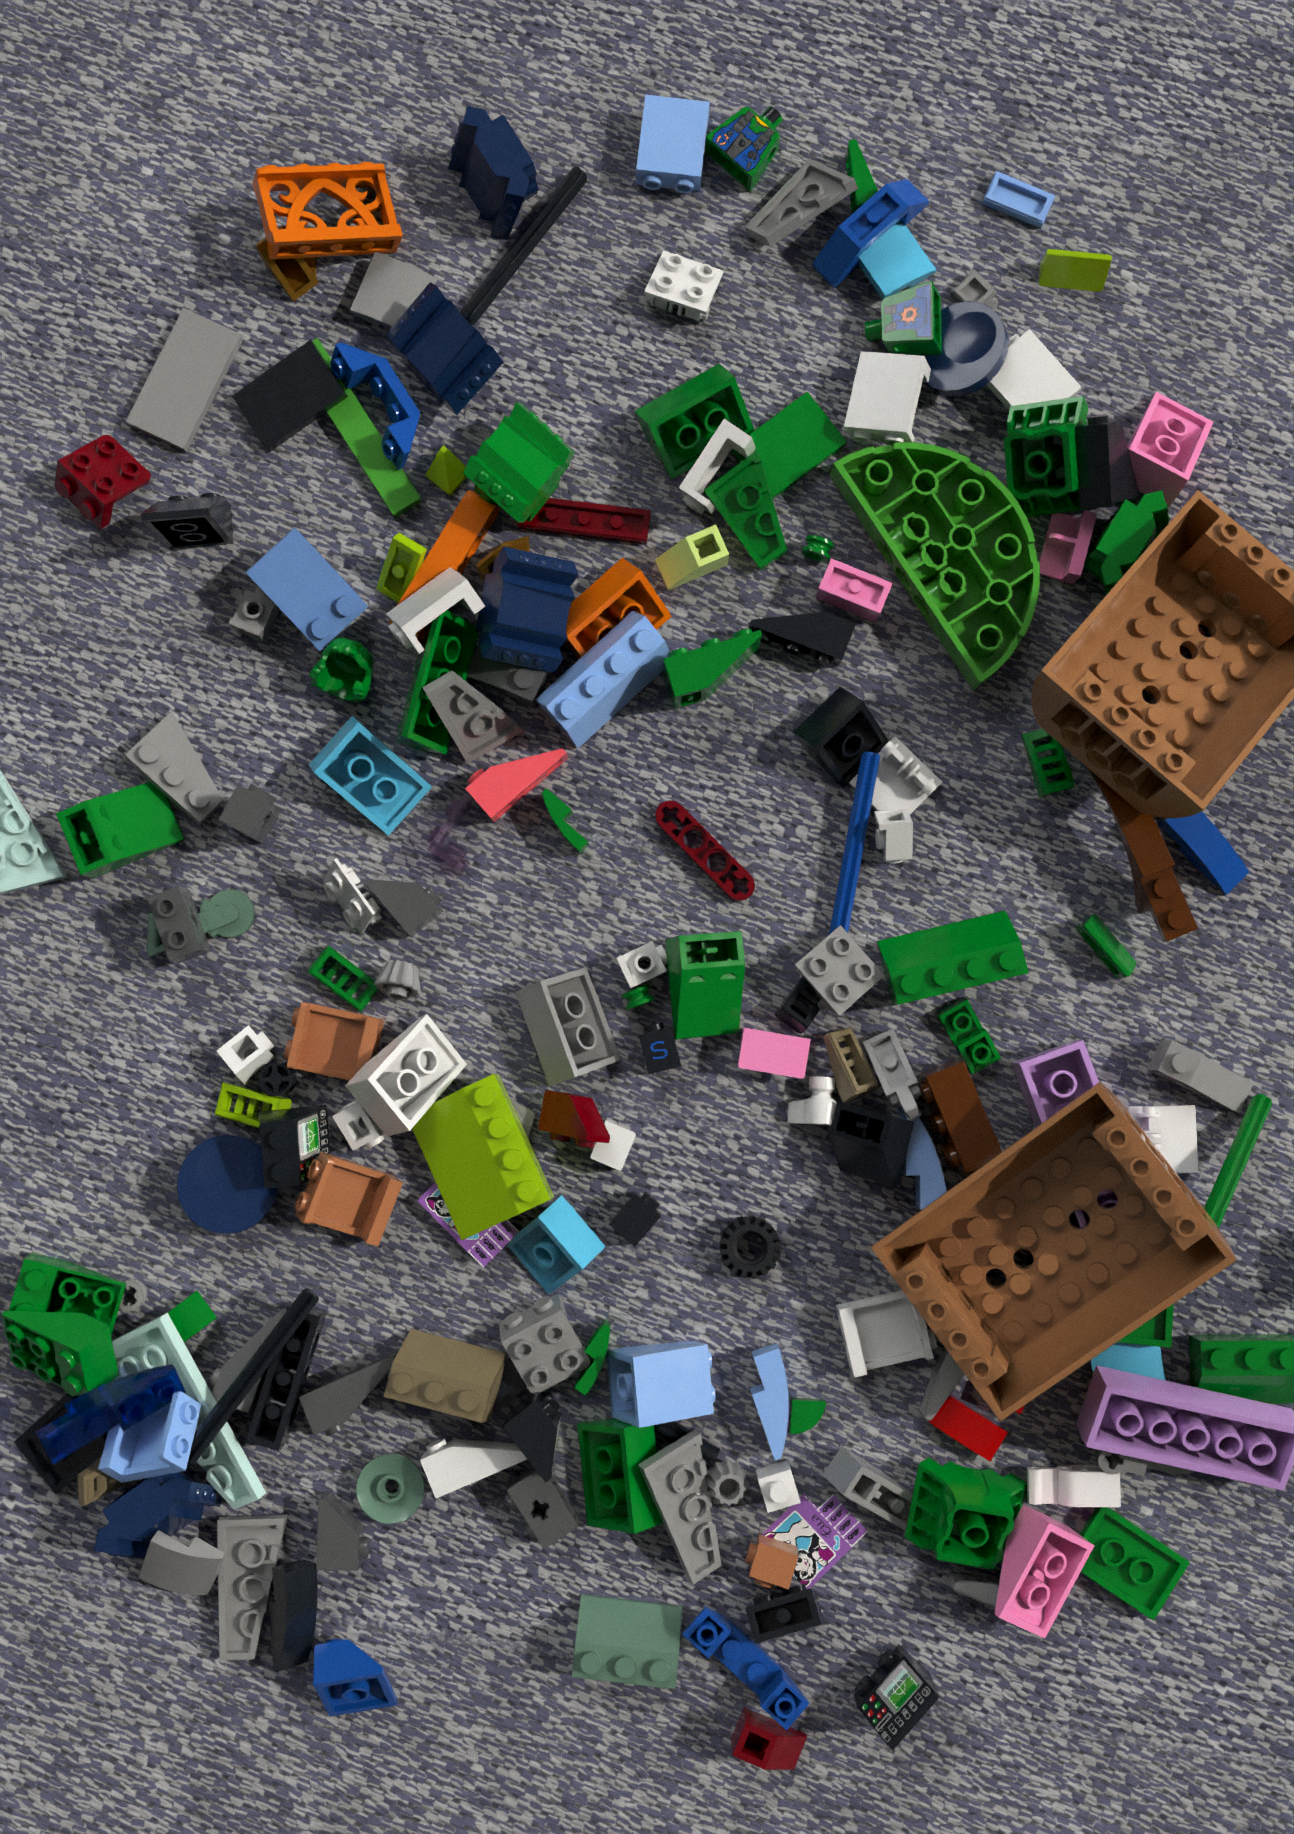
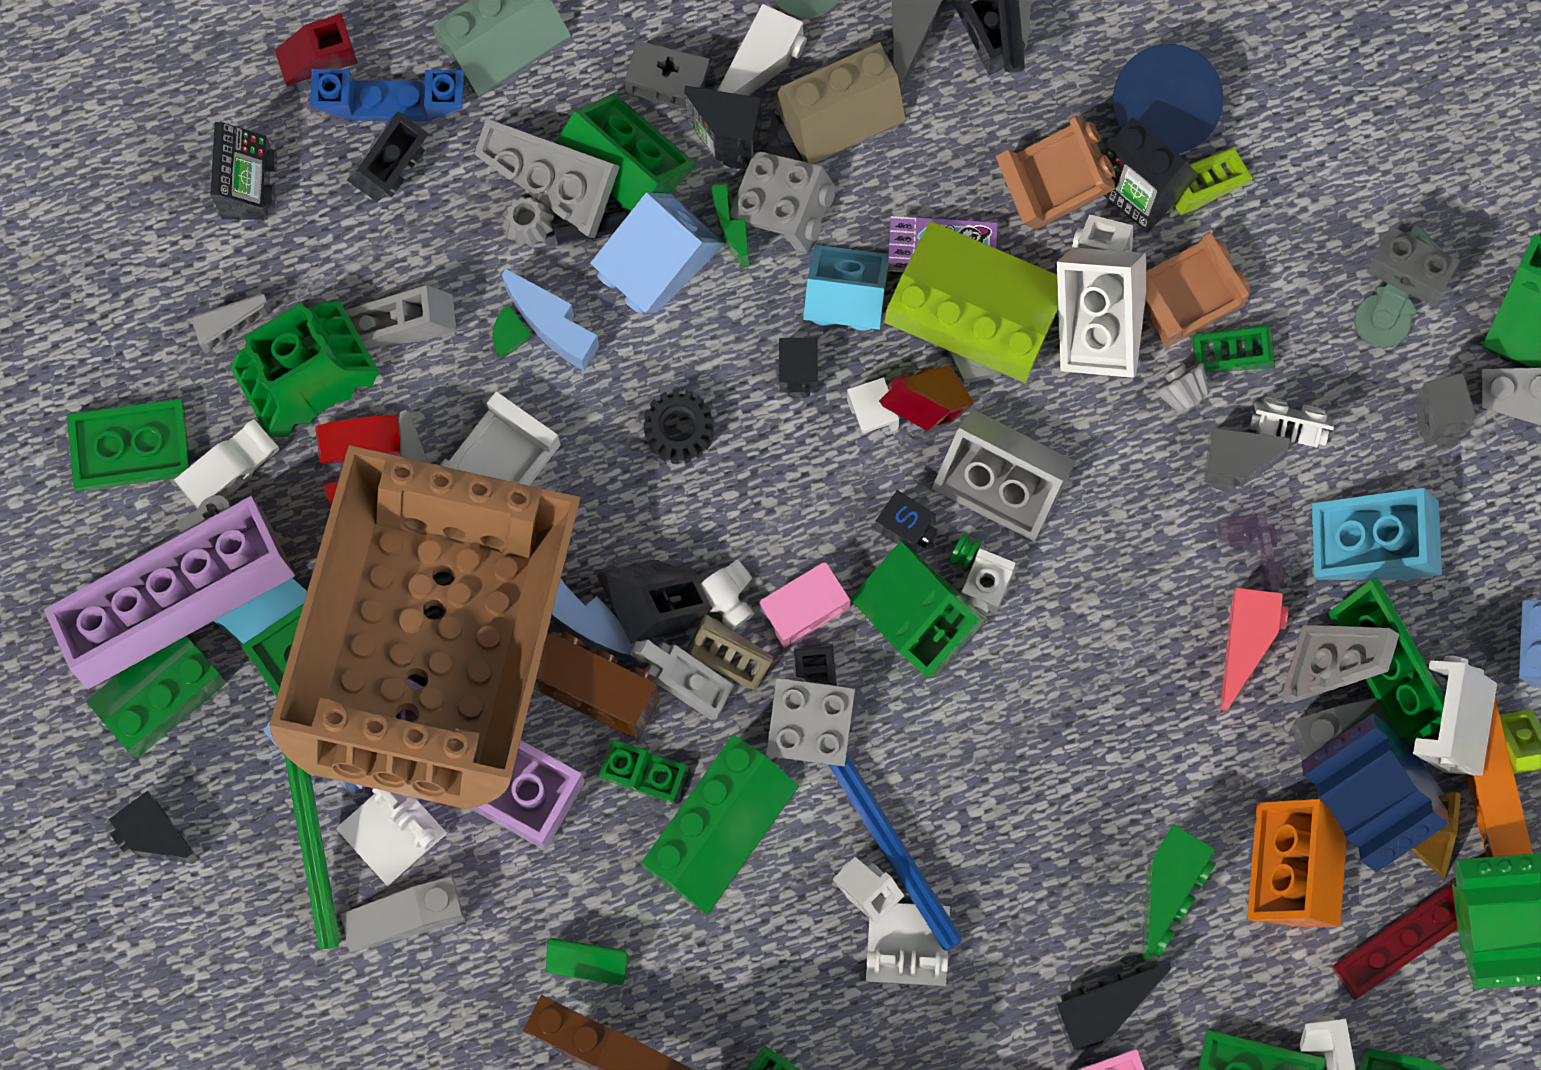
camera: 140 degrees right, 10 degrees down
(237, 1053) = (1264, 211): white brick -> none
(271, 1079) = (1212, 212): black wheel -> none
(344, 670) = (1486, 606): green hair -> none
(560, 814) = (1183, 649): green slope -> none
(605, 678) = (1252, 799): light blue slope -> none
(693, 557) = (1276, 984): yellowish green slope -> none
(707, 848) = (1023, 724): dark red beam -> none
(771, 1562) = (435, 191): nougat brick -> none
(777, 1486) = (482, 253): white brick -> none
(820, 1535) = (413, 240): sticker -> none
(840, 734) = (997, 939): black slope -> none
(1038, 1570) = (205, 367): bright pink slope -> none

